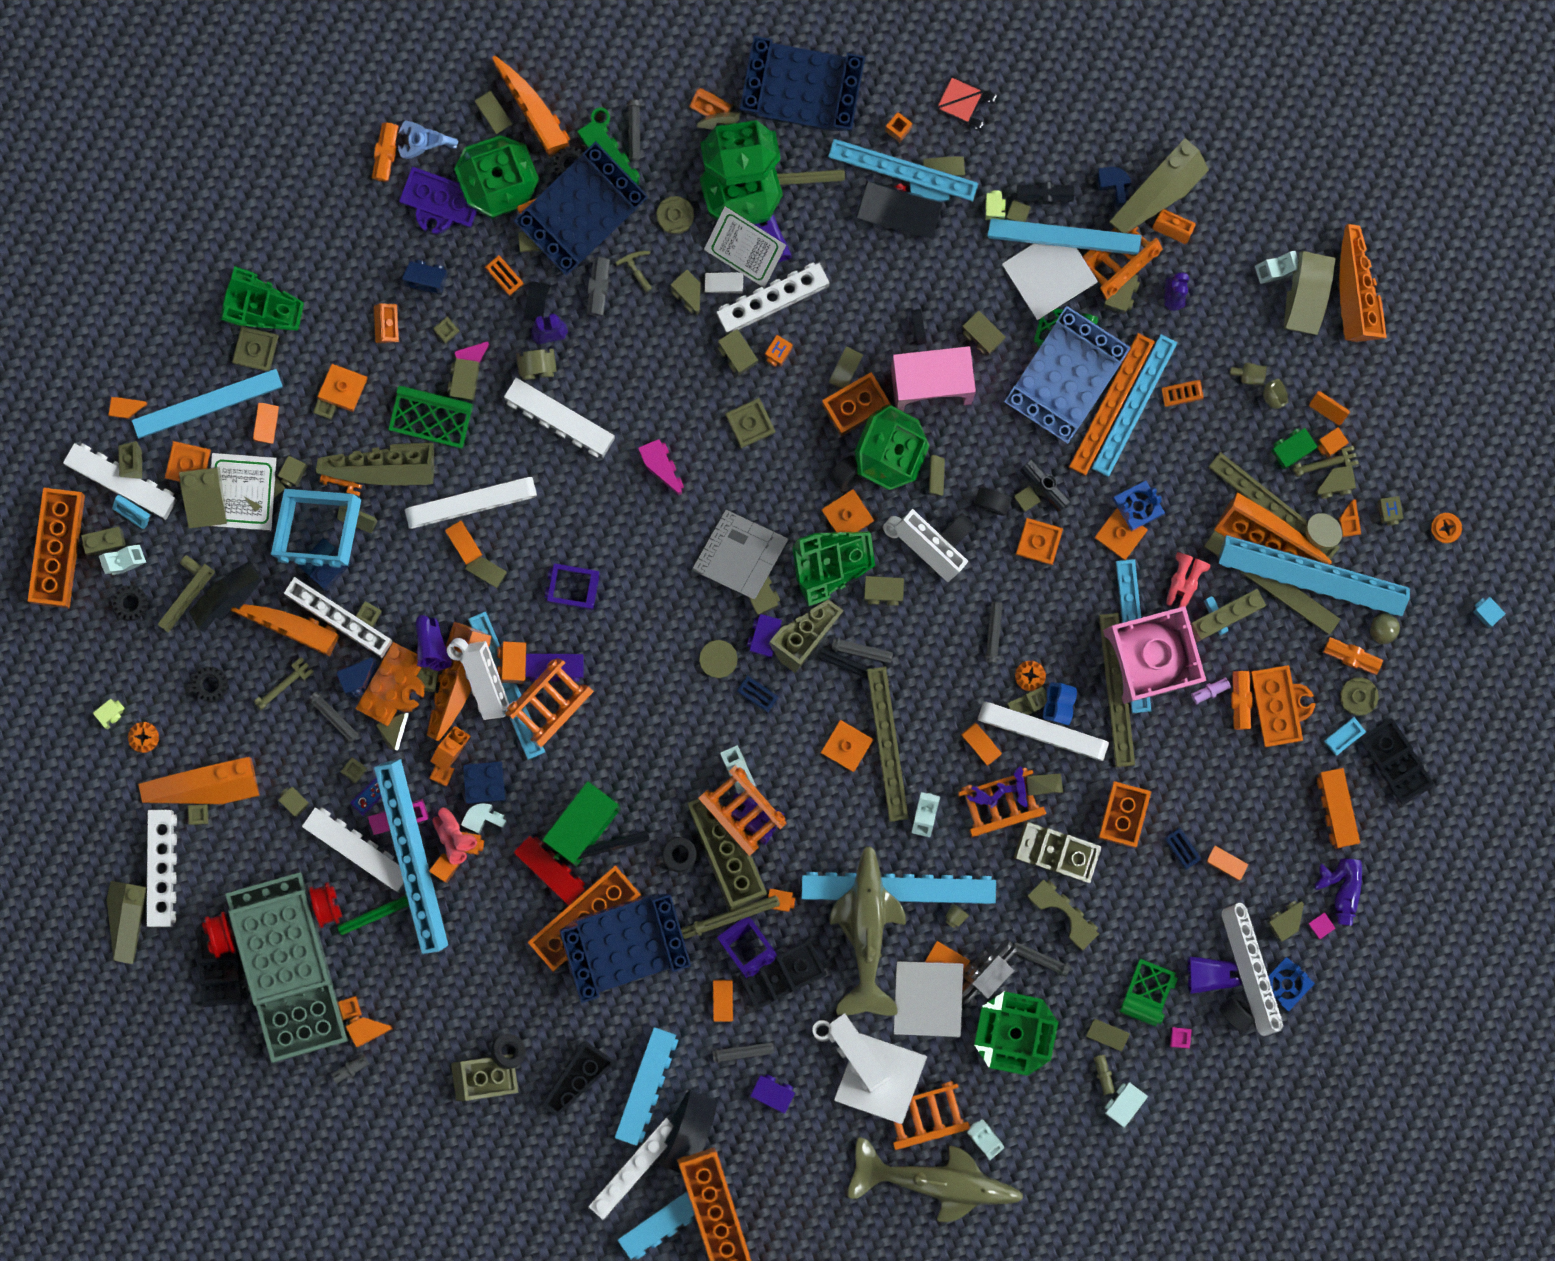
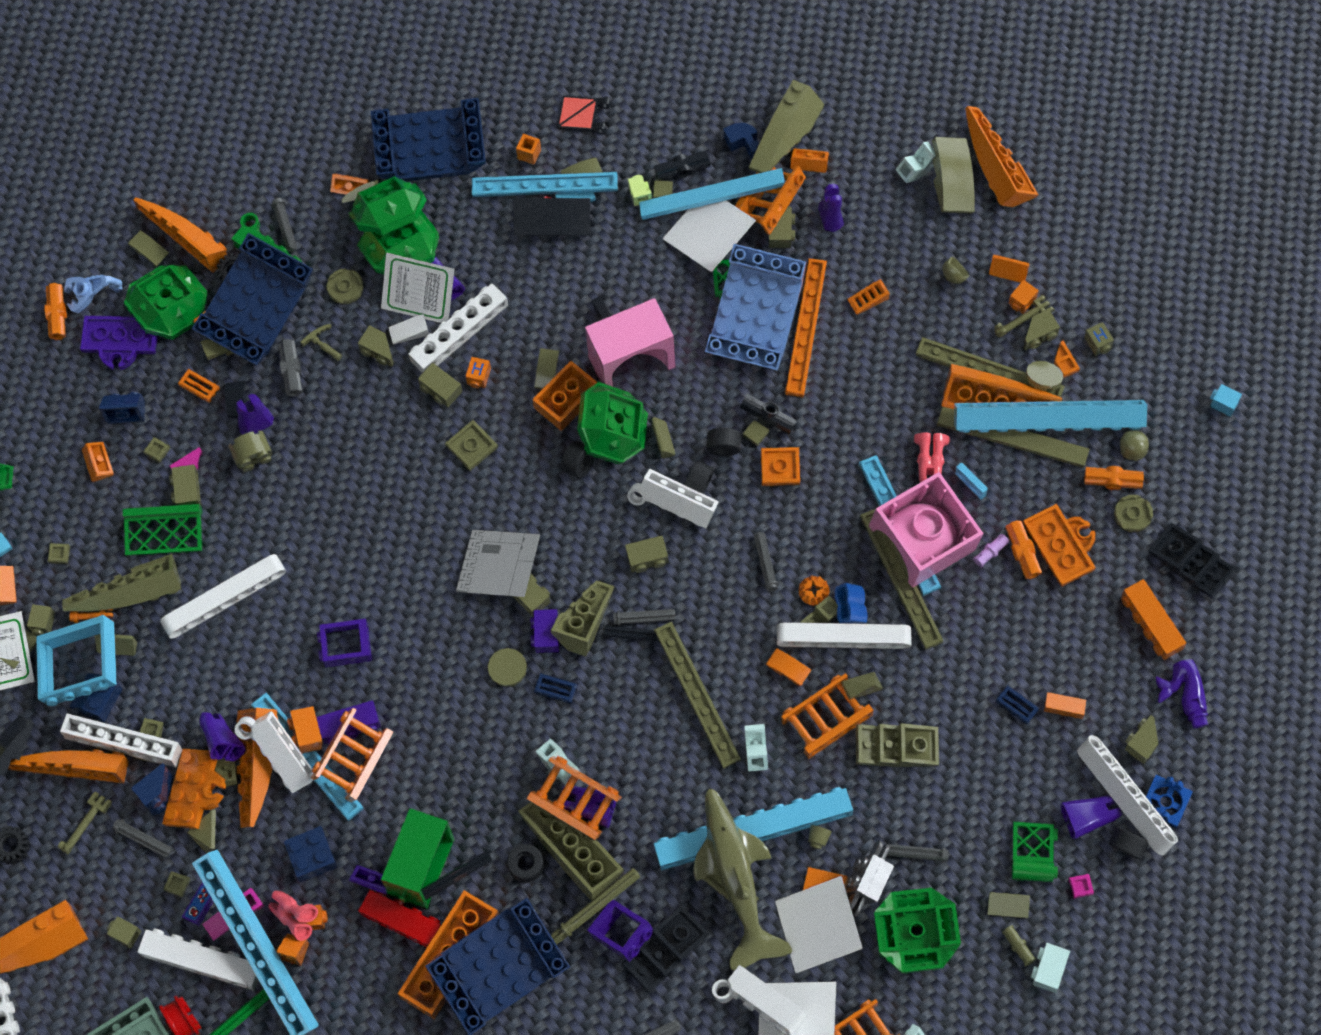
camera: 10 degrees left, 15 degrees down
(198, 814) = (30, 976): olive tile -> none
(342, 387) = (70, 530): orange plate -> none
(441, 776) = (266, 860): orange tile -> none
(450, 748) = (266, 832): orange slope -> none
(463, 542) = (226, 635): orange slope -> none
(477, 816) = (314, 886): light aqua brick -> none
(486, 571) = (256, 654): olive slope -> none
(532, 824) = (368, 878): none -> dark purple slope
(559, 417) = (287, 494): white brick -> none
(656, 461) = (392, 505): dark pink slope -> none
(723, 1000) = (613, 993): orange slope -> none
(786, 900) = (646, 876): orange brick -> none
(810, 177) = (462, 216): olive axle -> none
(830, 561) = (586, 541): green wedge -> none
(847, 746) = (658, 710): orange plate -> none
(848, 513) = (590, 499): orange plate -> none
(983, 333) = (669, 300): olive brick -> none
(983, 798) = (806, 713): dark purple piece -> none
(1081, 931) = (901, 790): olive arch -> none
(1118, 536) = (855, 437): orange plate -> none
(1124, 814) = (949, 688): orange brick -> none
(1127, 513) = (855, 415): blue piece -> none
(1134, 405) = (827, 322): medium azure tile -> none
(1227, 615) = (990, 466): olive arch -> none
(1251, 374) = (925, 261): olive piece -> none
(1293, 448) = (989, 312): green brick -> none
(1321, 926) = (1178, 735): dark pink tile -> none
(1344, 736) = (1133, 553): medium azure tile -> none
(1450, 520) = (1157, 332): orange gear -> none

